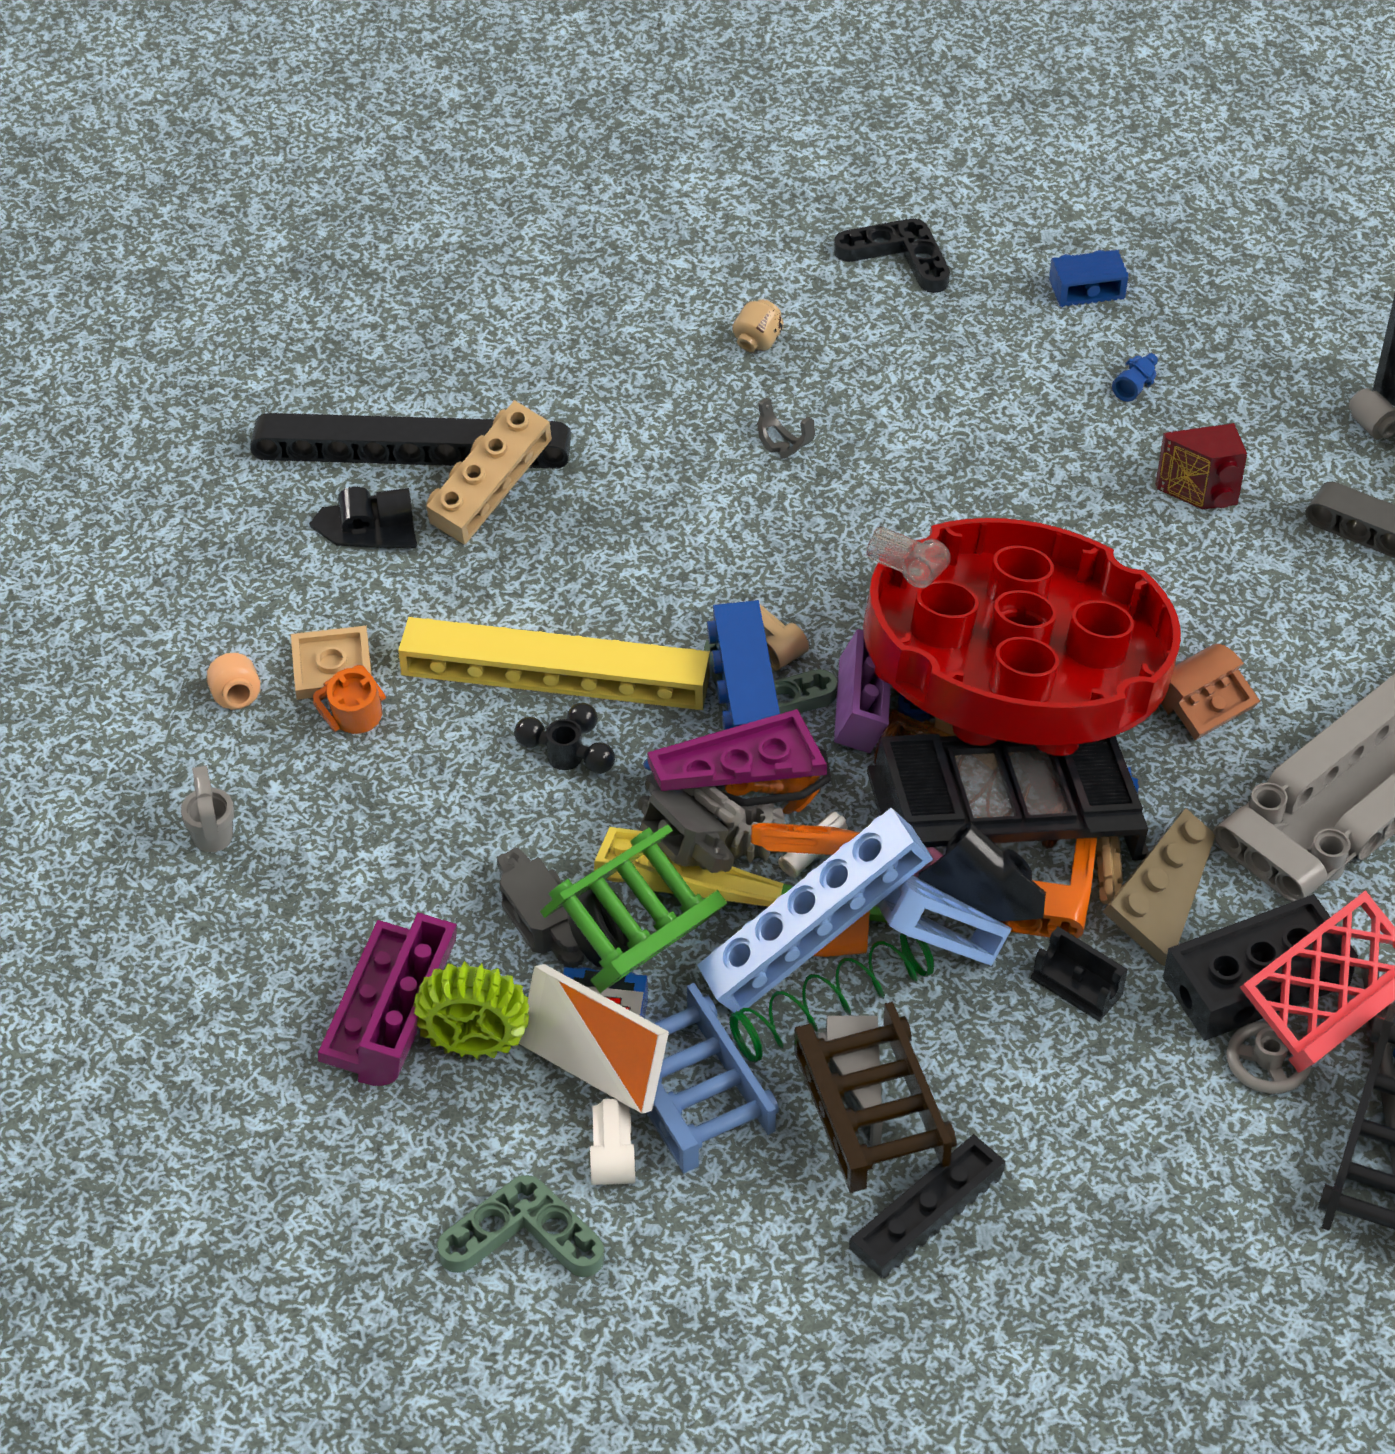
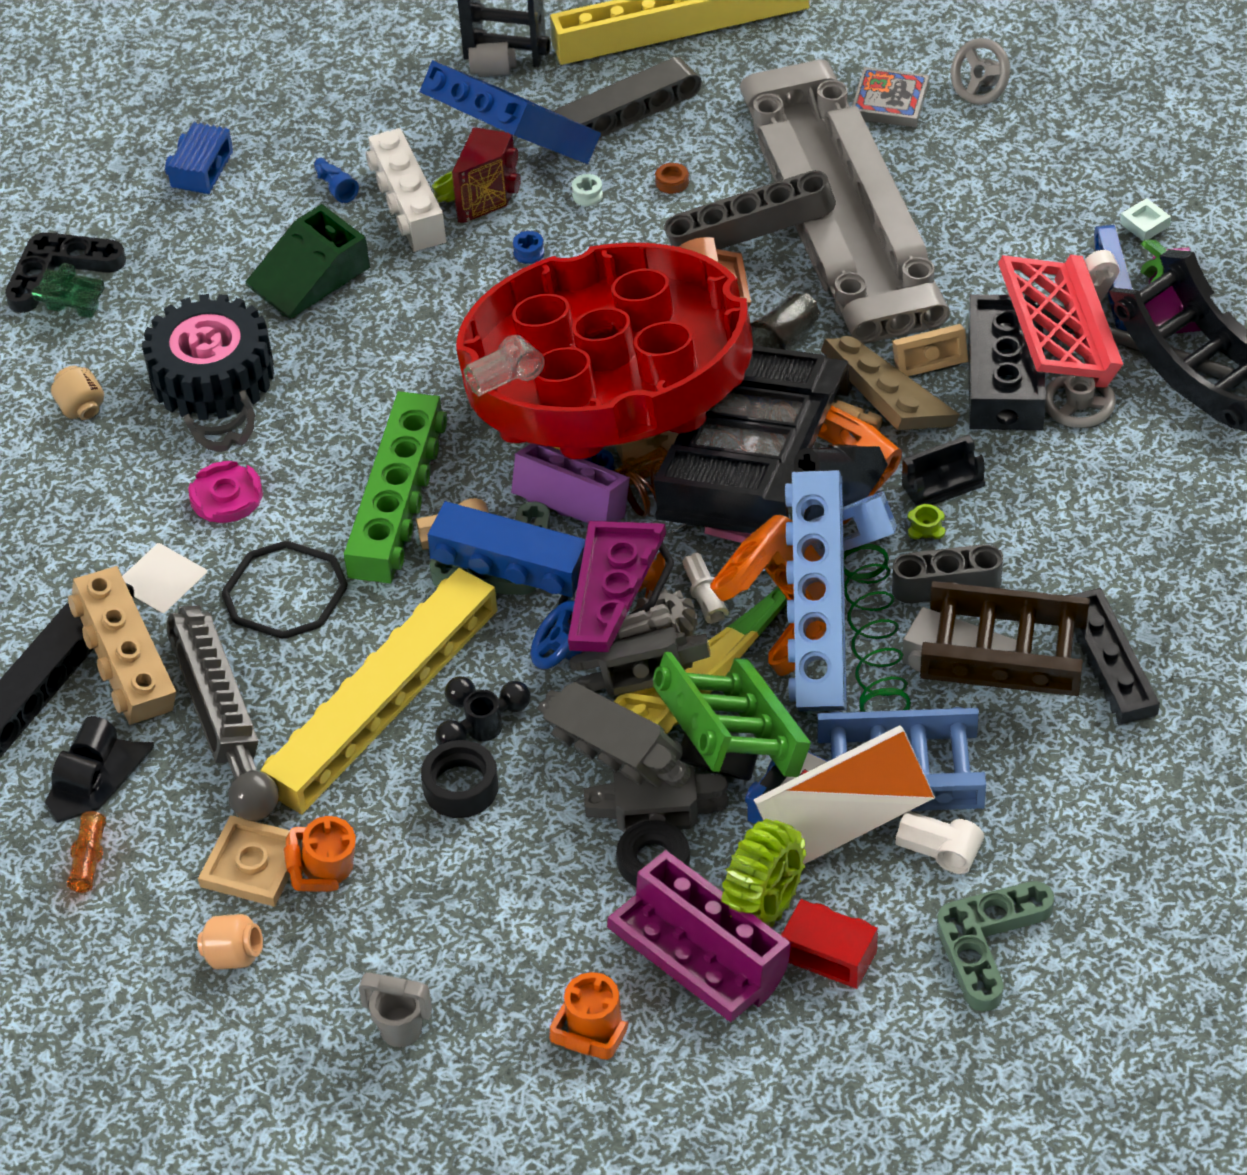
camera: 60 degrees left, 0 degrees up
(279, 954) = (591, 1016): none -> orange piece
(281, 553) = (83, 871): none -> clear orange pin
(443, 1102) = (830, 943): none -> red brick
(465, 566) = (221, 710): none -> dark grey gear
(485, 736) = (459, 754): none -> black tyre
(490, 912) = (646, 834): none -> black tyre
(568, 837) = (614, 735): none -> dark grey hinge
(601, 473) = (162, 577): none -> white sticker
(636, 594) = (297, 630): none -> black piece
(718, 479) = (222, 501): none -> dark pink tile
(778, 574) = (395, 488): none -> bright green brick
(850, 406) = (214, 373): none -> black wheel
(866, 268) = (67, 289): none -> clear green hips
(944, 1010) = (962, 565): none -> dark grey beam
(1012, 978) = (926, 522): none -> lime plate
(1013, 402) = (310, 262): none -> dark green slope
(1139, 434) = (406, 189): none -> white brick
(1162, 540) = (534, 252): none -> blue bush
(1184, 771) = (786, 322): none -> clear smoke plant
(1231, 894) = (930, 350): none -> tan tile
(1262, 563) = (583, 182): none -> light aqua bush
(1293, 503) = (509, 112): none -> blue window
(1303, 681) = (755, 211): none -> dark grey beam
(1330, 611) = (672, 178): none -> dark orange tile

